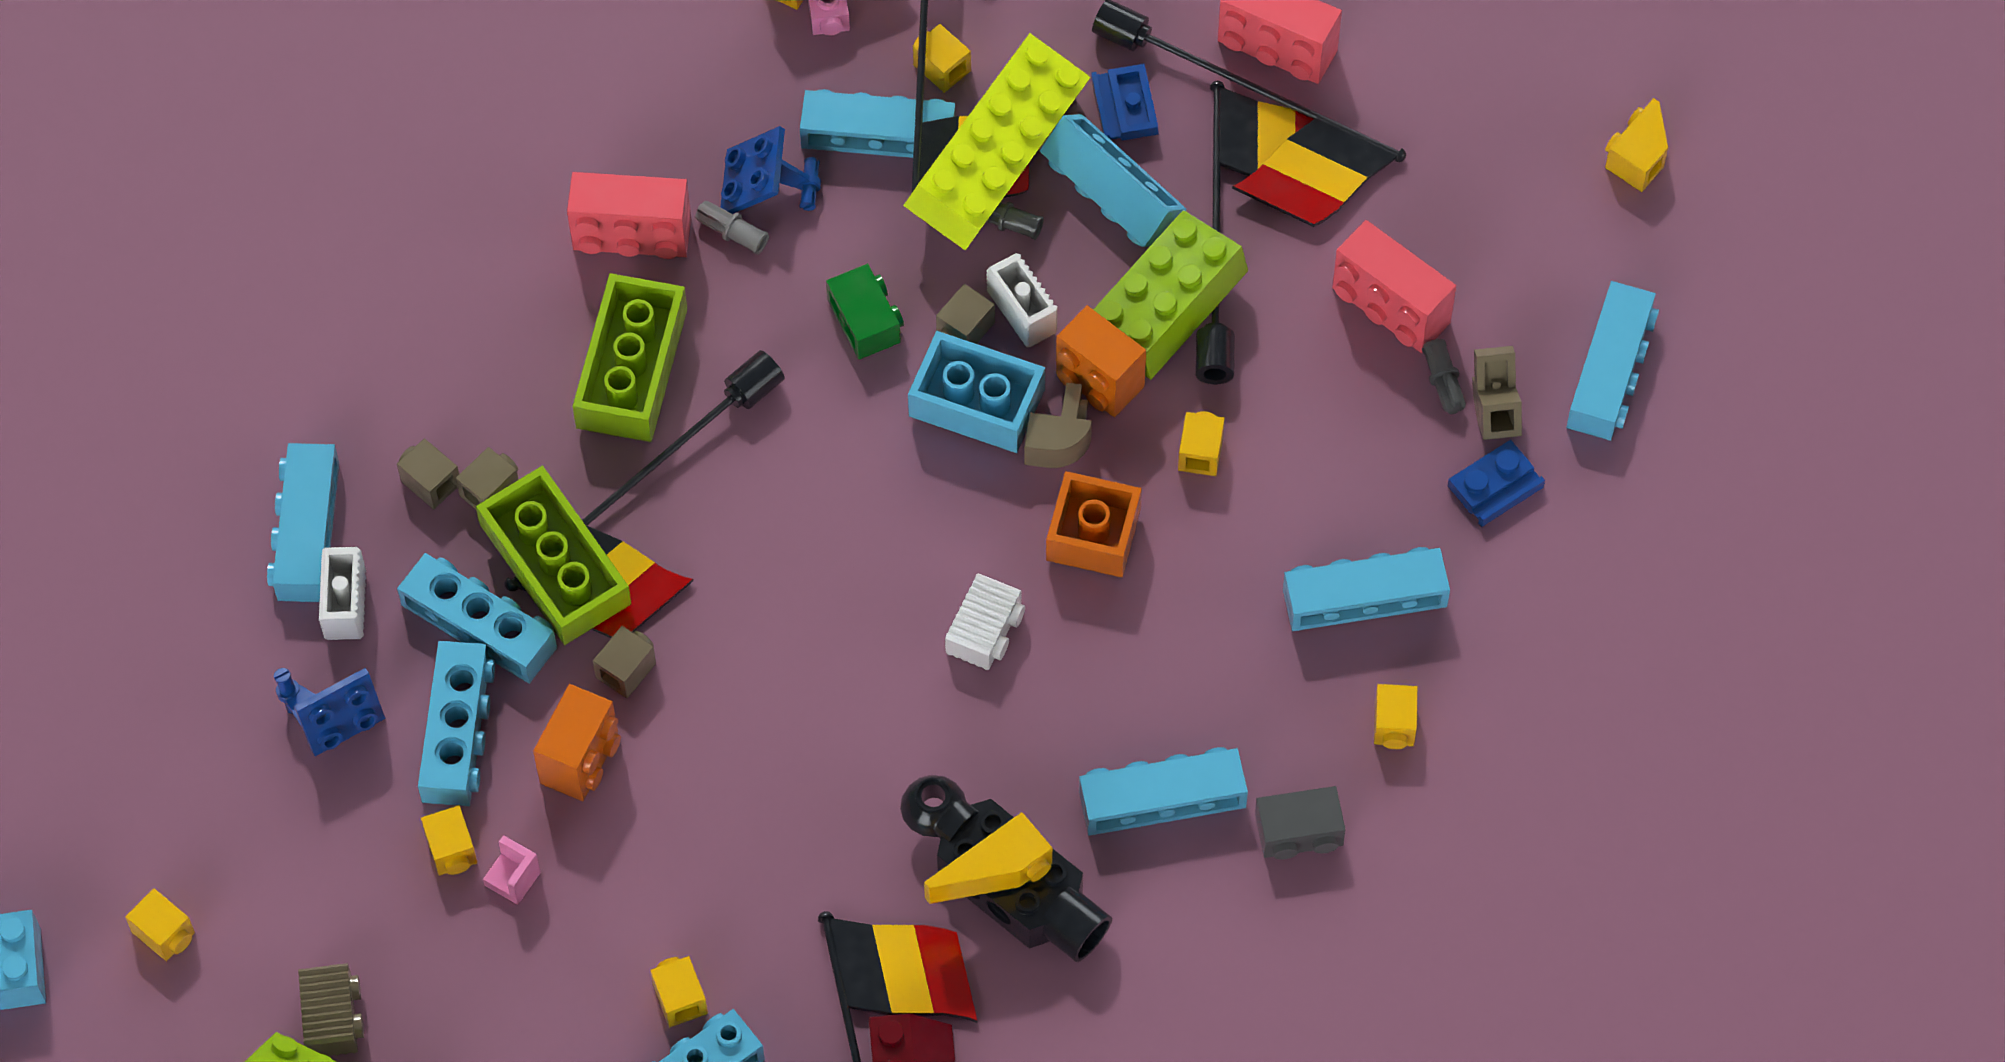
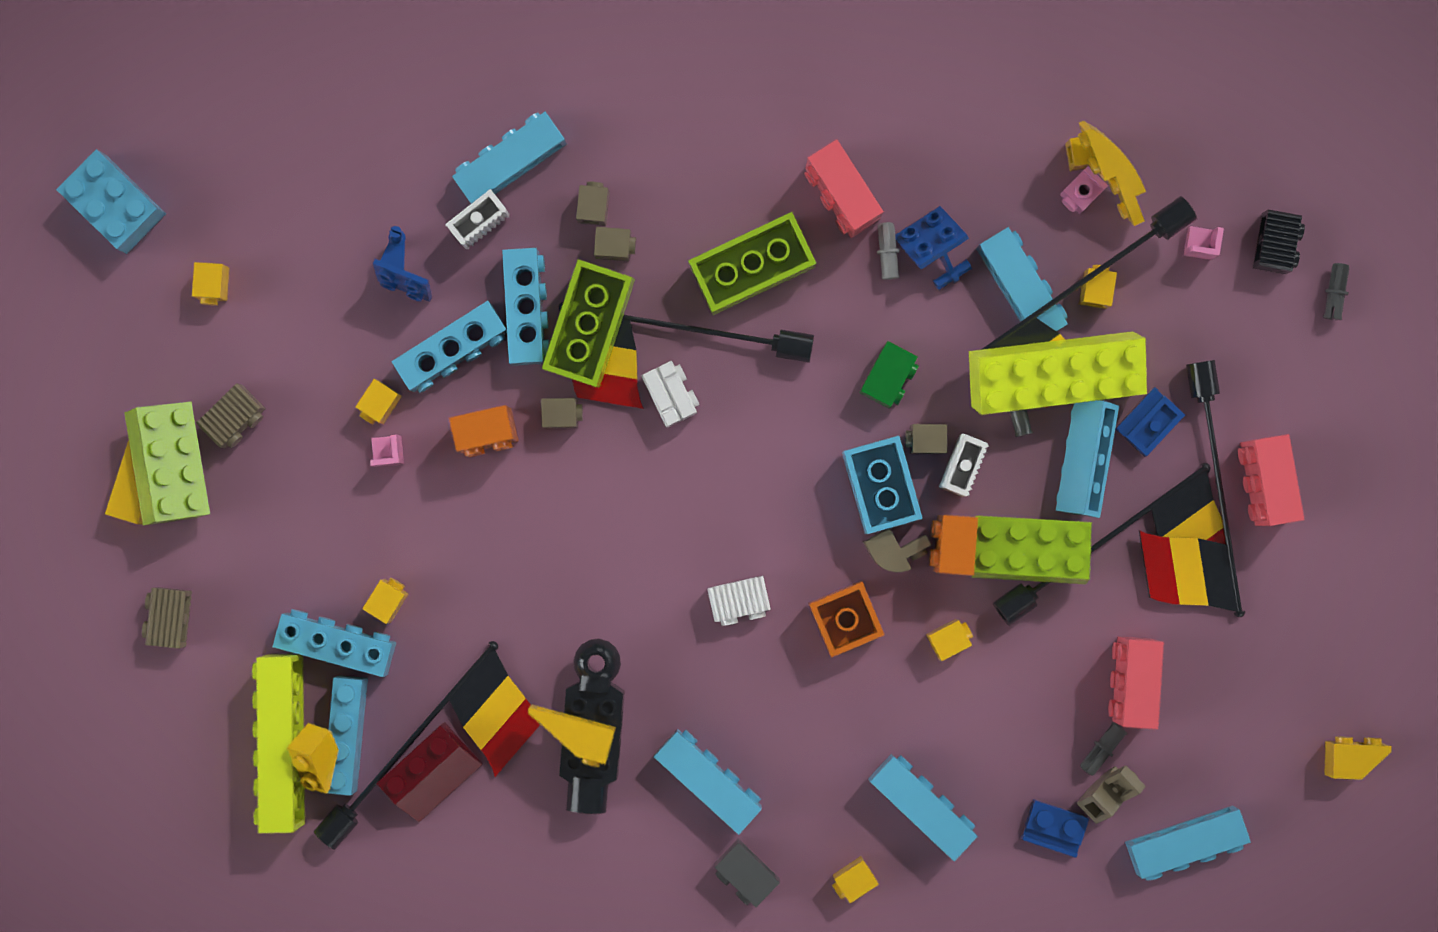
camera: 55 degrees right, 25 degrees up
(699, 536) = (669, 393): none -> white brick

